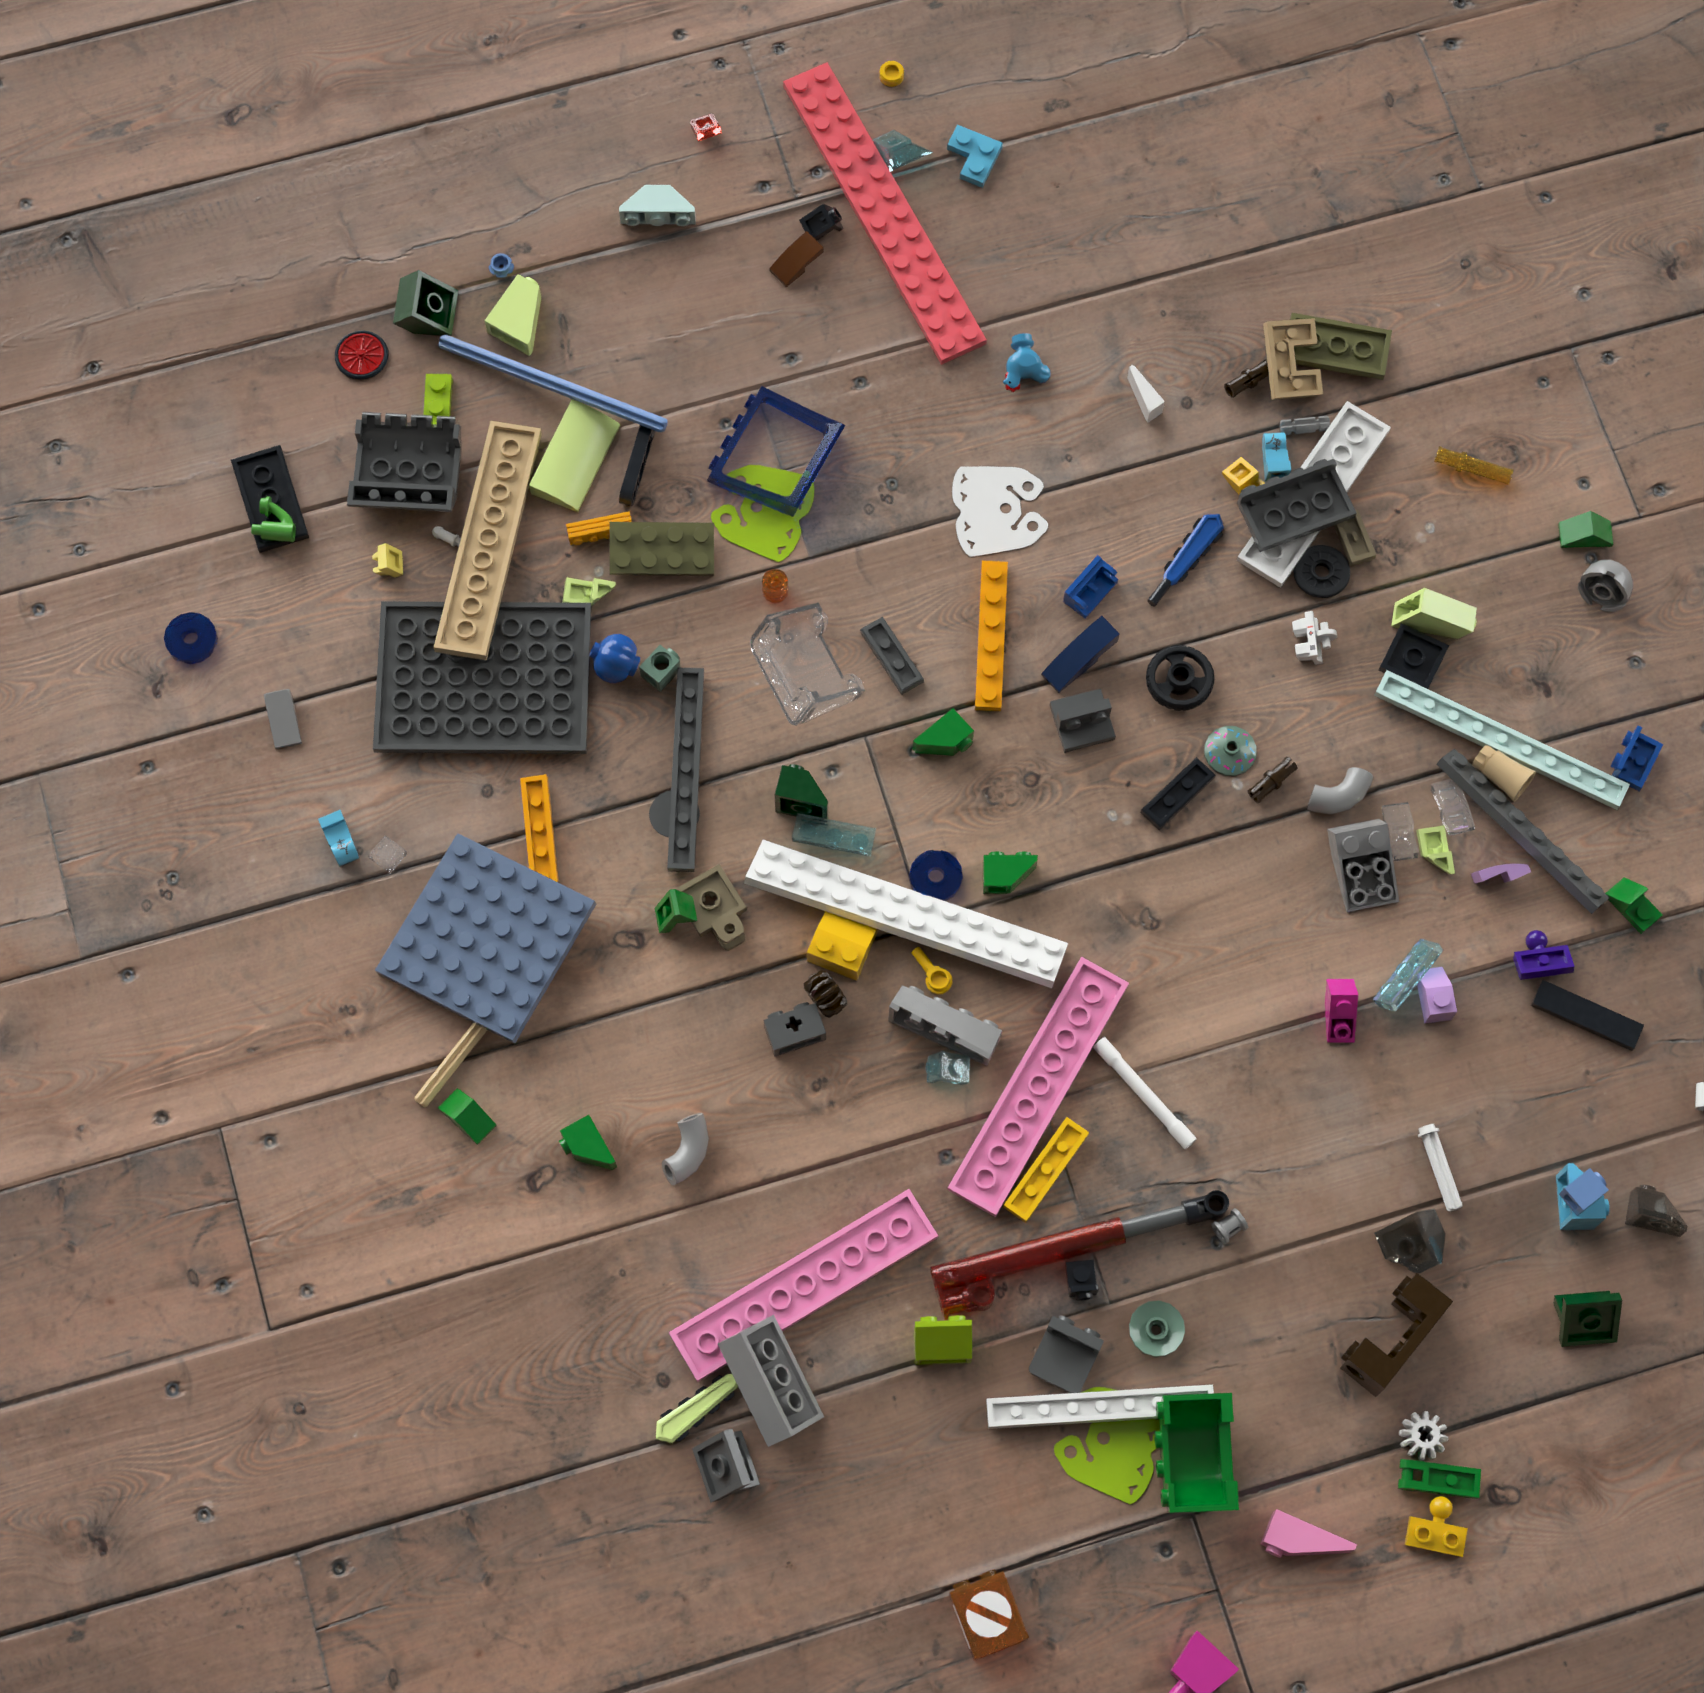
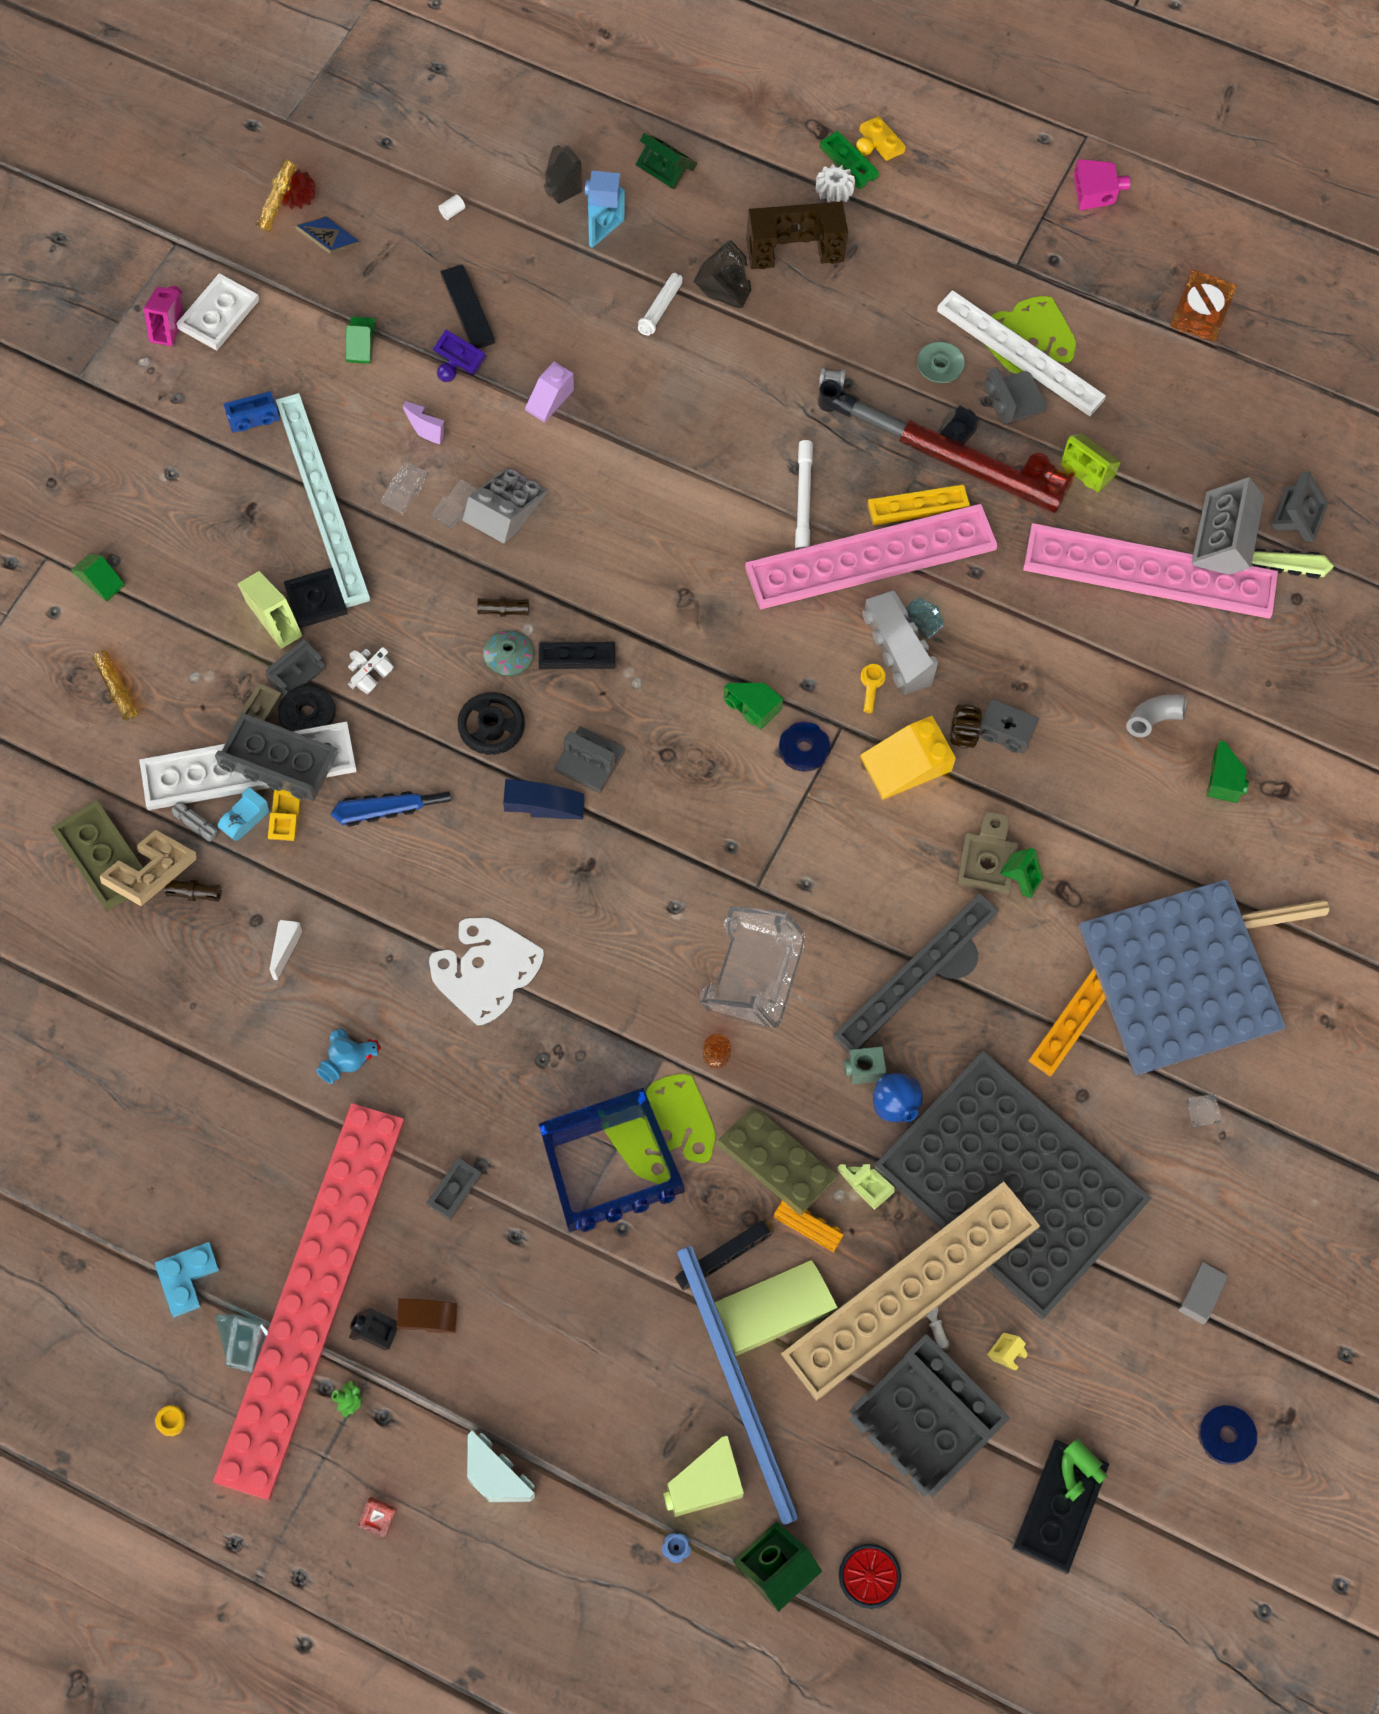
camera: 140 degrees left, 5 degrees down
(339, 837) = (1234, 1152): medium azure leg -> none
(438, 395) = (844, 1464): lime plate -> none
(467, 1116) = (1299, 871): green slope -> none
(794, 171) = (348, 1398): none -> bright green plant
(799, 793) = (857, 872): dark green slope -> none
(834, 834) = (851, 832): clear light blue plate -> none
(860, 346) = (454, 1189): none -> dark grey plate
(892, 655) = (678, 926): dark grey tile -> none
(906, 913) = (856, 737): white plate -> none
(945, 736) = (702, 829): green slope -> none
(991, 636) = (589, 876): light orange plate -> none
(1090, 587) = (482, 845): blue hinge -> none
(1196, 1453) = (996, 270): green cylinder -> none
(1295, 1537) = (967, 194): bright pink slope -> none
(1341, 1010) = (621, 433): dark pink slope -> none
(1344, 795) = (470, 553): light grey cylinder -> none
(1363, 591) = (295, 668): none -> dark grey hinge
(1408, 974) = (554, 416): clear light blue plate -> none
(1434, 847) = (445, 476): yellowish green slope -> none
(1504, 772) = (346, 474): tan plant -> none
(1523, 831) = (377, 436): dark grey plate -> none
(1606, 584) = (129, 524): light grey cylinder -> none

